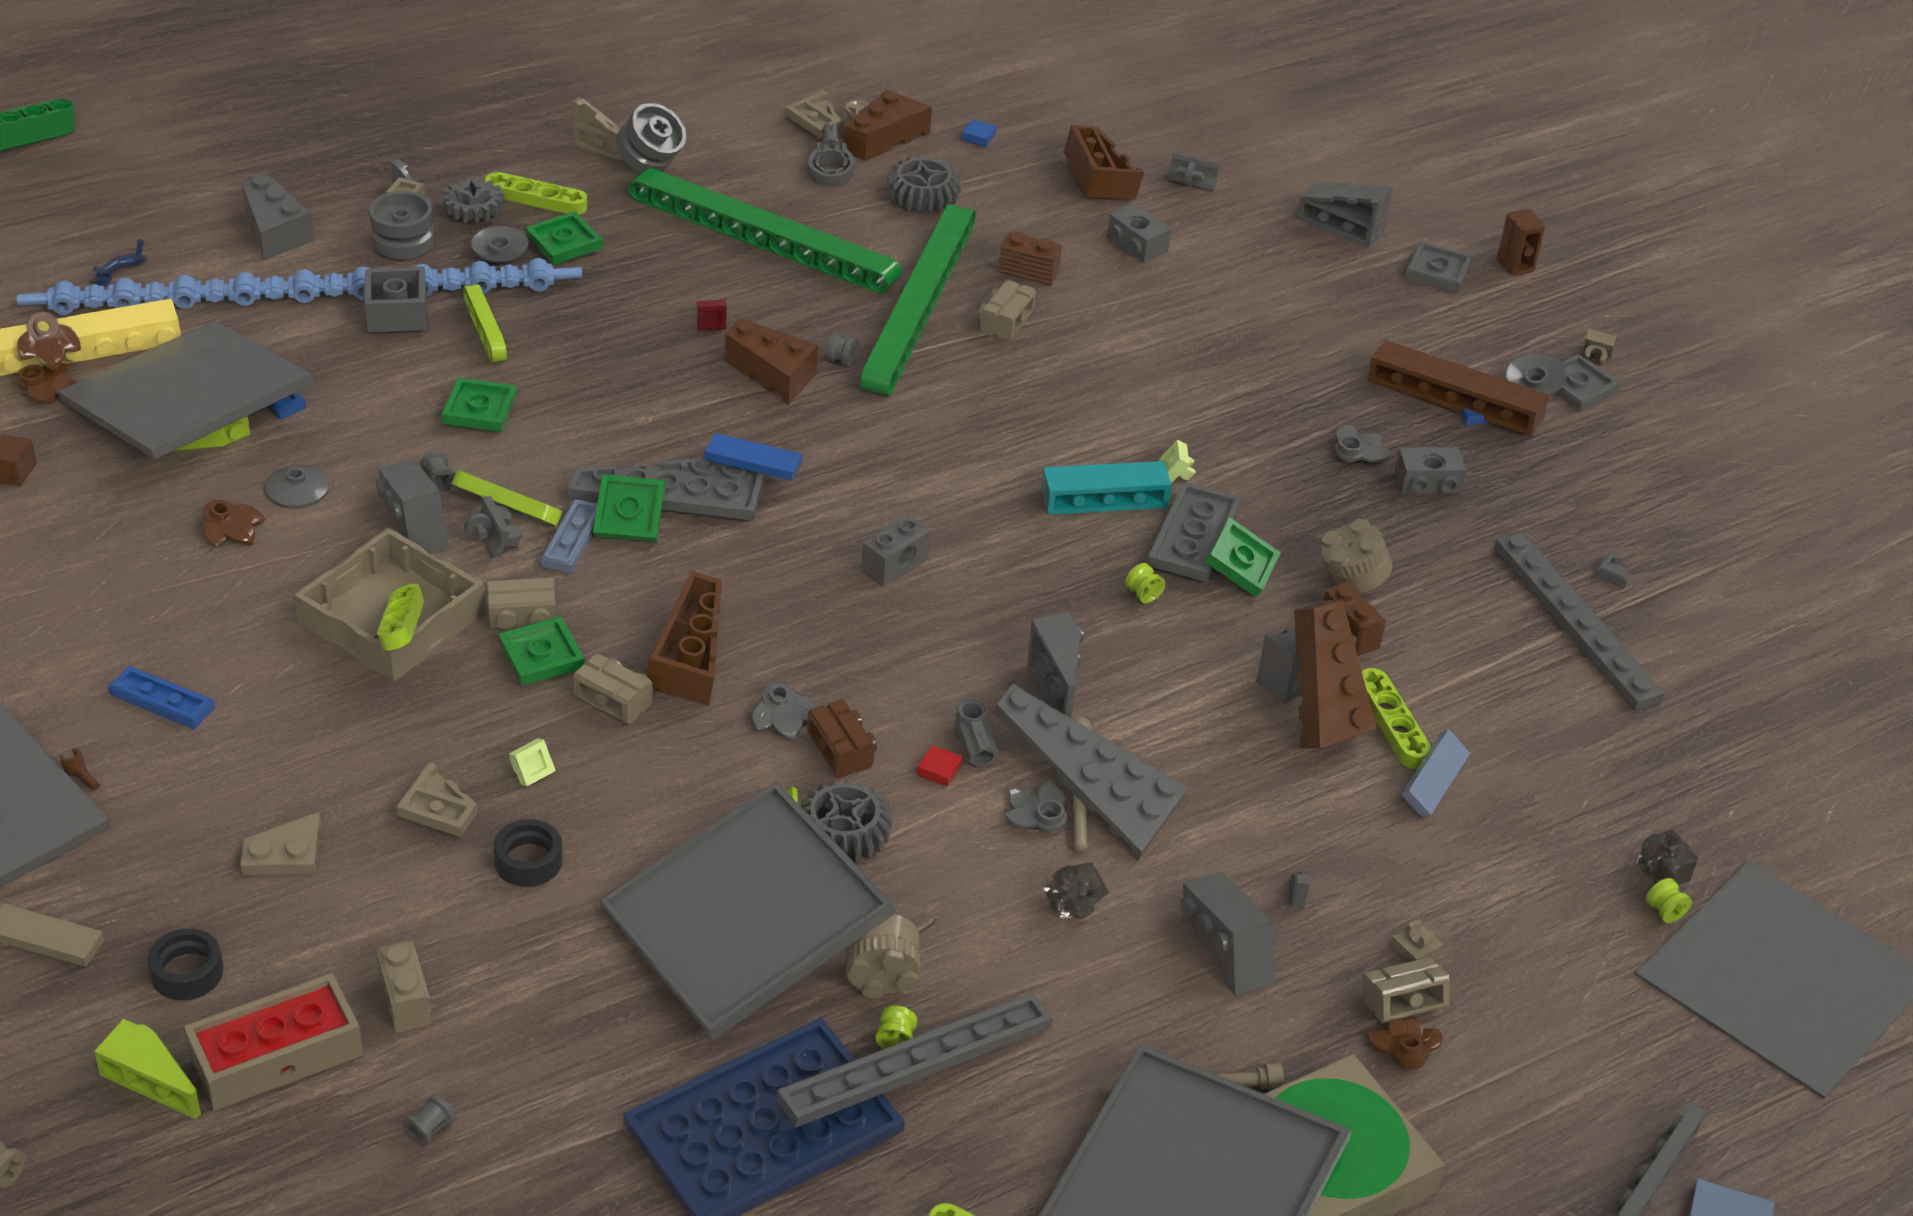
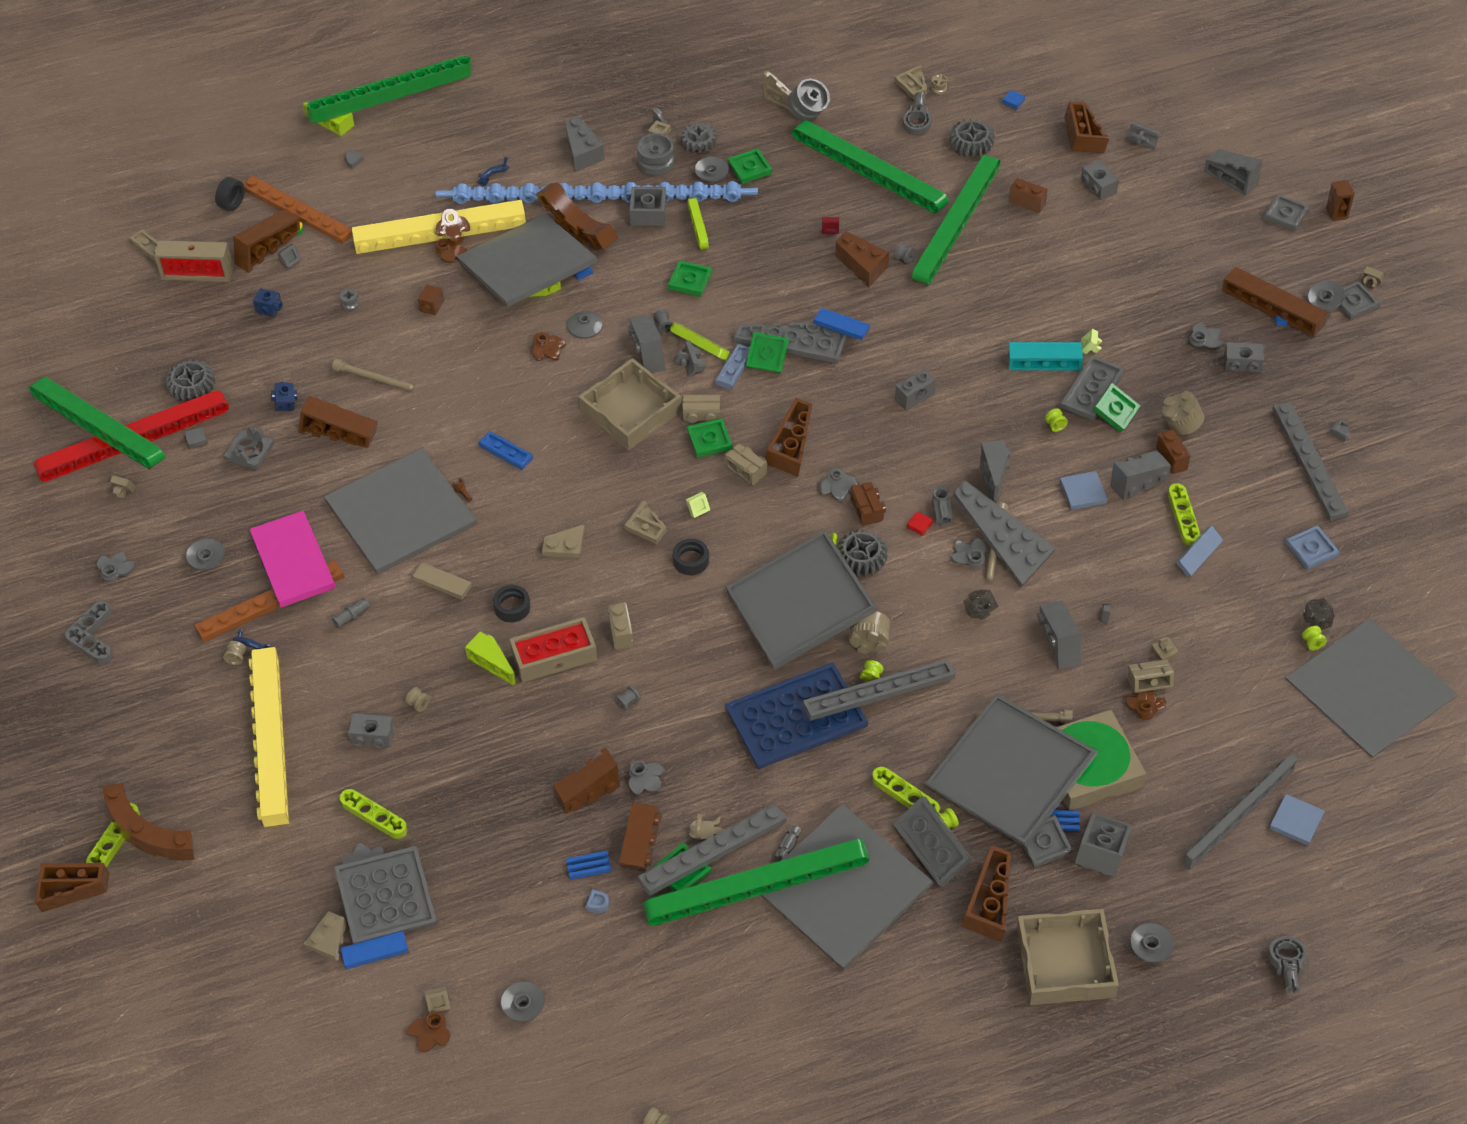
camera: 15 degrees right, 10 degrees up
(261, 322) = (575, 221): none -> reddish brown brick
(400, 617) = (634, 414): lime beam -> none
(563, 200) = (754, 139): lime beam -> none
(886, 123) = (953, 92): reddish brown wedge -> none
(1007, 310) = (1008, 231): dark tan brick -> none
(1214, 691) = (1083, 490): none -> sand blue tile
(1330, 677) = (1146, 490): reddish brown wedge -> none
(1620, 754) = (1312, 547): none -> sand blue tile

